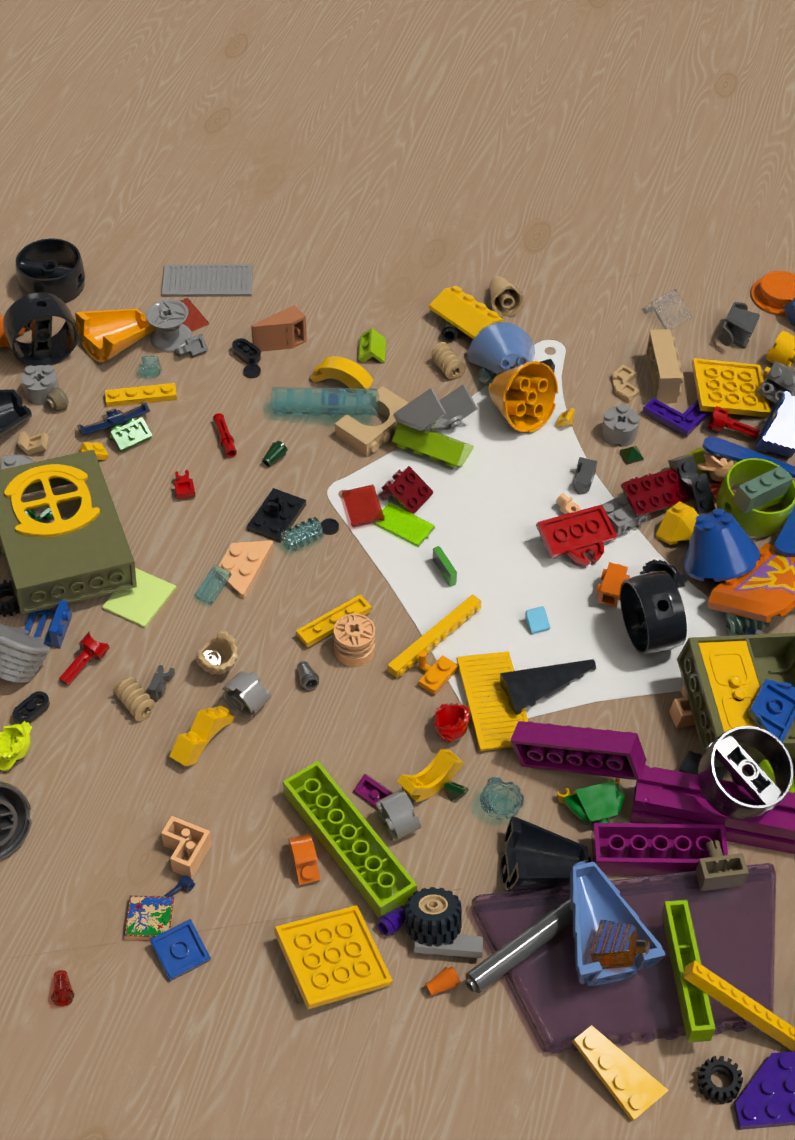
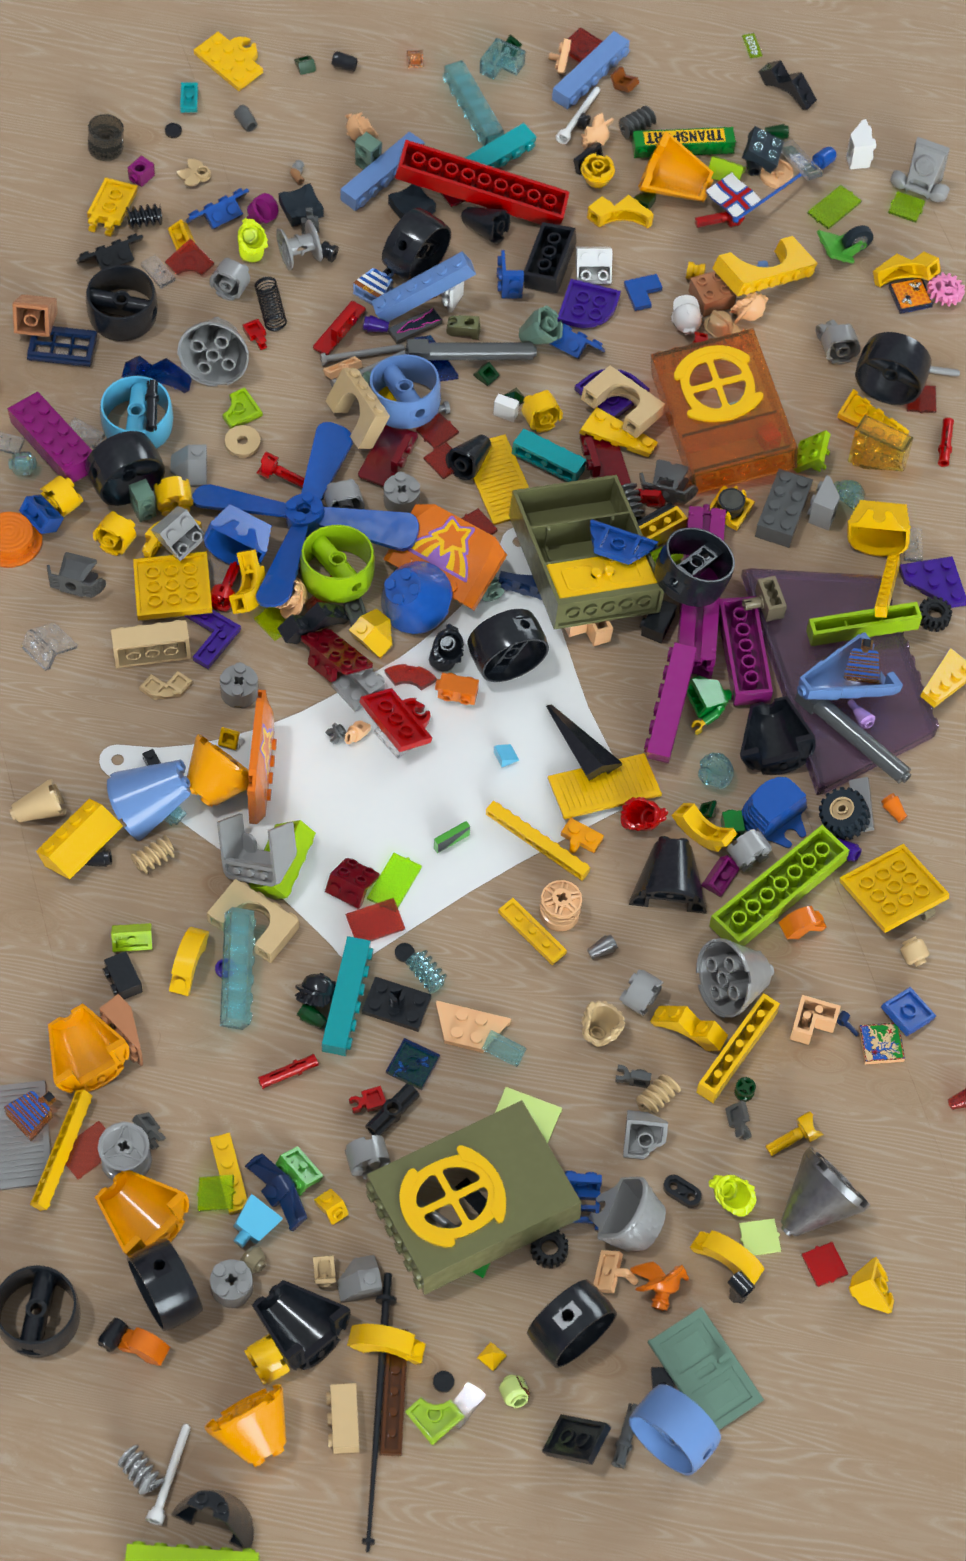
camera: 100 degrees left, 10 degrees up
(64, 820) = (805, 1129): none -> yellow piece
(90, 401) = (254, 1221): none -> medium azure torso
(91, 649) = (606, 1146): red piece -> none
(96, 766) = (737, 1117): none -> dark grey plate
(99, 677) = (643, 1134): none -> light grey slope
(123, 382) = (215, 1193): none -> clear neon green piece
(124, 777) = (747, 1085): none -> dark green wheel
(125, 472) = (366, 1155): none -> light grey brick
(150, 366) = (188, 1168): clear light blue plate -> none
(168, 772) = (738, 1048): none -> yellow brick
(169, 499) = (401, 1102): none -> black piece
(187, 296) = (61, 1150): none -> yellow piece
(214, 521) = (413, 1064): none -> tile
(219, 278) = (30, 1113): none -> clear orange torso
(243, 773) = (731, 976): none -> light grey cone
(246, 350) = (148, 1069): black plate -> none
(251, 968) = (914, 951): none -> tan head
(252, 371) = (177, 1061): black piece -> none
(260, 302) = (85, 1051): none -> light orange cone
(288, 476) = (346, 996): none -> teal brick
(294, 451) = (315, 990): none -> black hair
(334, 338) = (122, 975): none -> black brick
(376, 745) = (670, 876): none -> black cone
(435, 809) = (733, 819): none -> green brick
(448, 850) = (775, 809): none -> blue piece
(532, 417) = (261, 759): none -> orange slope
(557, 952) = (863, 717): none -> lavender cone
(569, 490) = (338, 731): none -> dark grey plate
(585, 474) = (312, 717): dark grey leg -> none
(631, 454) = (271, 679): dark green slope -> none
(634, 555) = (411, 675): none -> clear red tile
(745, 439) = (252, 578): none -> yellow arch
(762, 489) = (353, 547): sand green brick -> none

